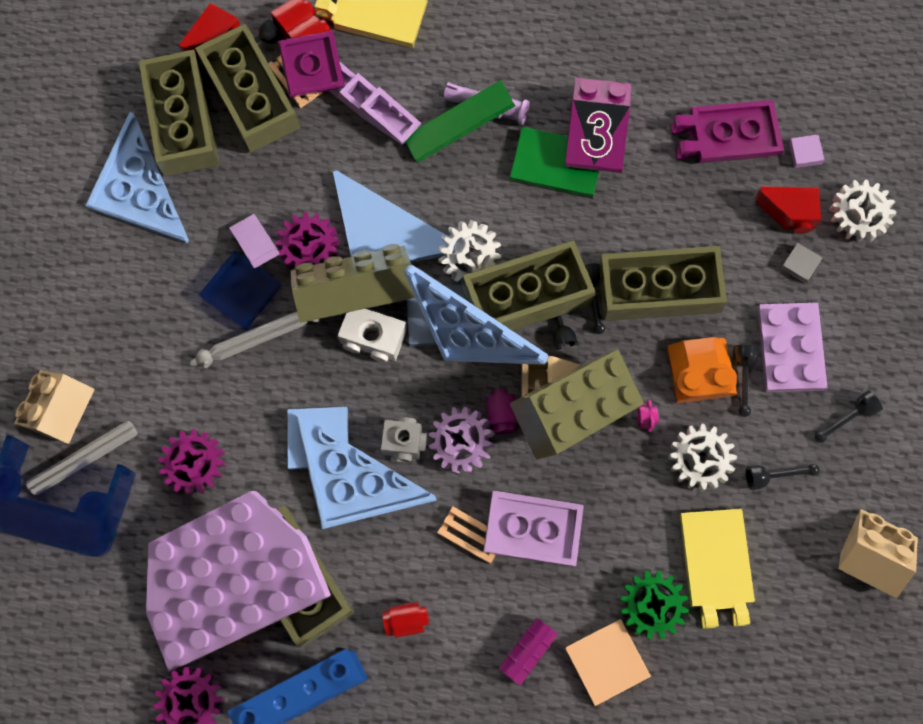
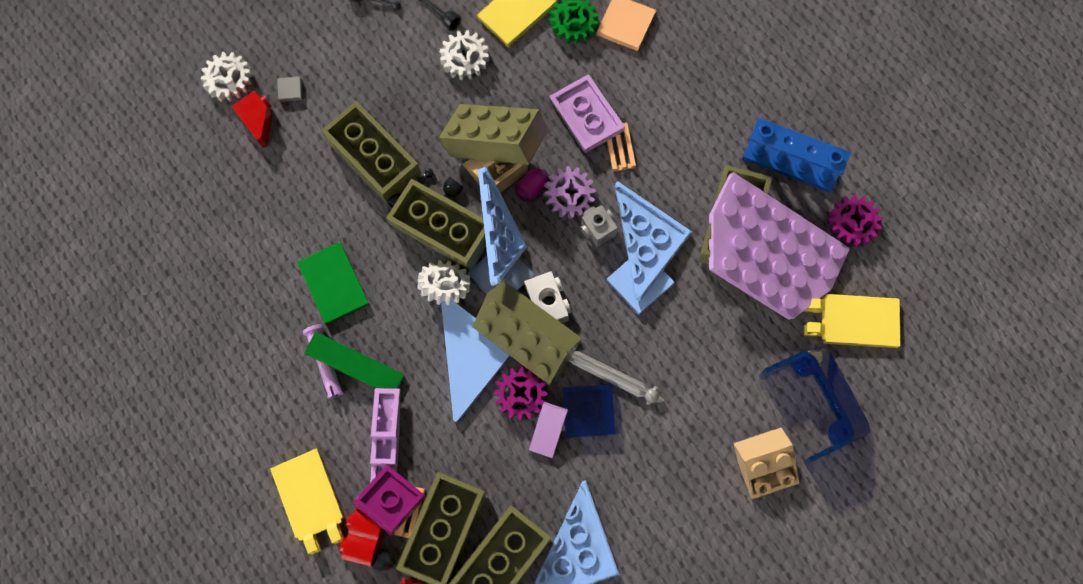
camera: 125 degrees left, 0 degrees up
(81, 458) = (780, 416): light grey axle -> none
(97, 611) = (856, 320): none -> light yellow tile
(196, 474) = (714, 337): magenta gear -> none
(405, 620) = (700, 141): red brick -> none
(528, 651) = (658, 64): magenta axle -> none
(598, 125) = (287, 271): magenta slope -> none
(647, 416) = (464, 98): dark pink plate -> none
(701, 369) = (409, 95): orange slope -> none
(729, 132) = (227, 192): magenta tile -> none
(745, 356) = (380, 77): black hinge -> none
(792, 347) = (351, 57): lavender plate -> none
(806, 151) = (206, 139): lavender tile -> none

